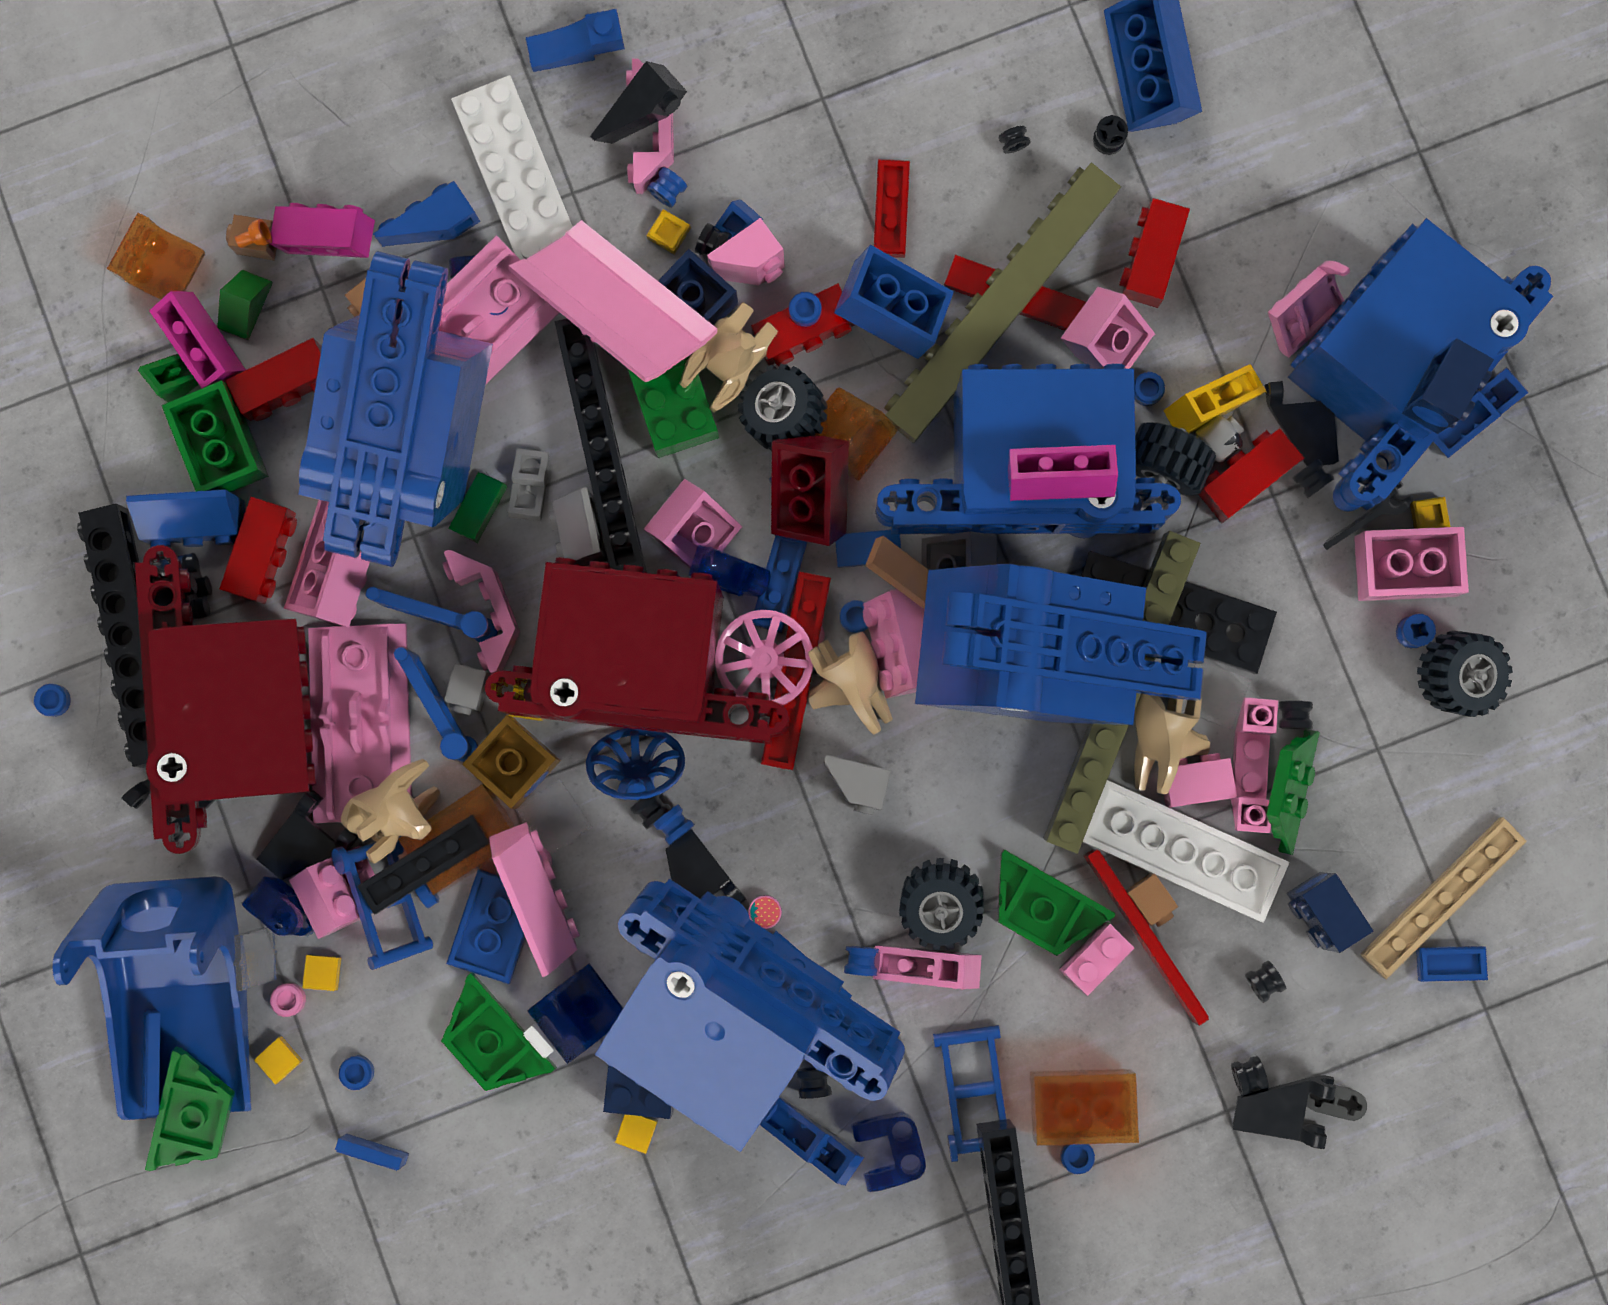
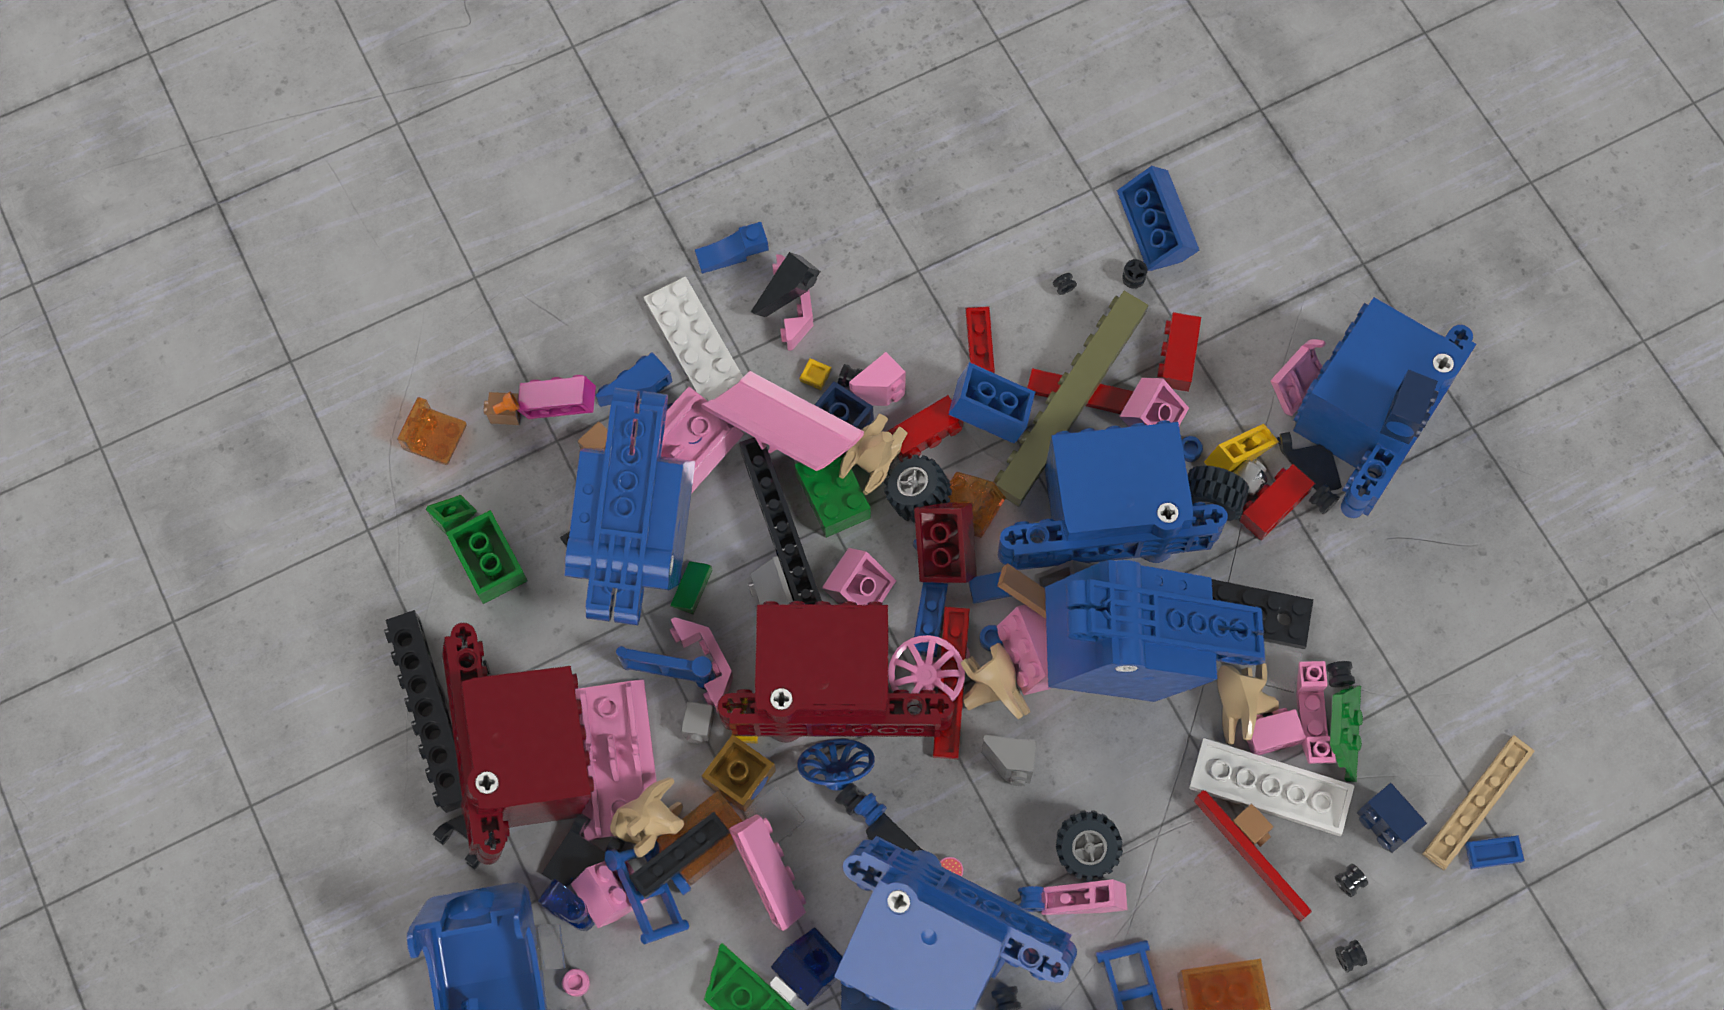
camera: 10 degrees left, 15 degrees down
(52, 700) = (370, 767): blue tile -> none
(187, 517) = (483, 609): blue slope -> none
(196, 338) = (467, 483): dark pink brick -> none
(241, 303) = (498, 458): green slope -> none
(258, 550) = (526, 634): red brick -> none
(276, 381) = (533, 508): red brick -> none
(321, 972) = (601, 957): yellow tile -> none
(326, 582) = (583, 641): bright pink slope -> none
(454, 743) = (694, 758): blue piece -> none
(488, 932) = (733, 908): blue tile -> none
(529, 484) = (729, 566): light grey slope -> none
(667, 187) = (811, 342): blue wheel -> none
(731, 573) = (900, 615): clear blue piece -> none
(736, 218) = (864, 358): blue slope -> none
(805, 309) = (925, 415): blue tile -> none
(1044, 907) = (1169, 841): green wing -> none
(1062, 472) = (1136, 496): dark pink brick -> none
(1096, 958) = (1216, 876): bright pink brick -> none
(1103, 741) = (1197, 701): olive brick -> none
(1282, 1110) = (1380, 981): black flag -> none
(1333, 1109) = (1421, 963): dark grey beam -> none
(1390, 505) = (1382, 509): black flag -> none
(1409, 634) = (1417, 607): blue wheel -> none
(1411, 563) = (1408, 552): bright pink brick -> none
(1430, 513) = (1417, 518): yellow tile -> none
(1464, 673) = (1463, 627): black wheel -> none
(1490, 404) = (1438, 439): blue slope -> none

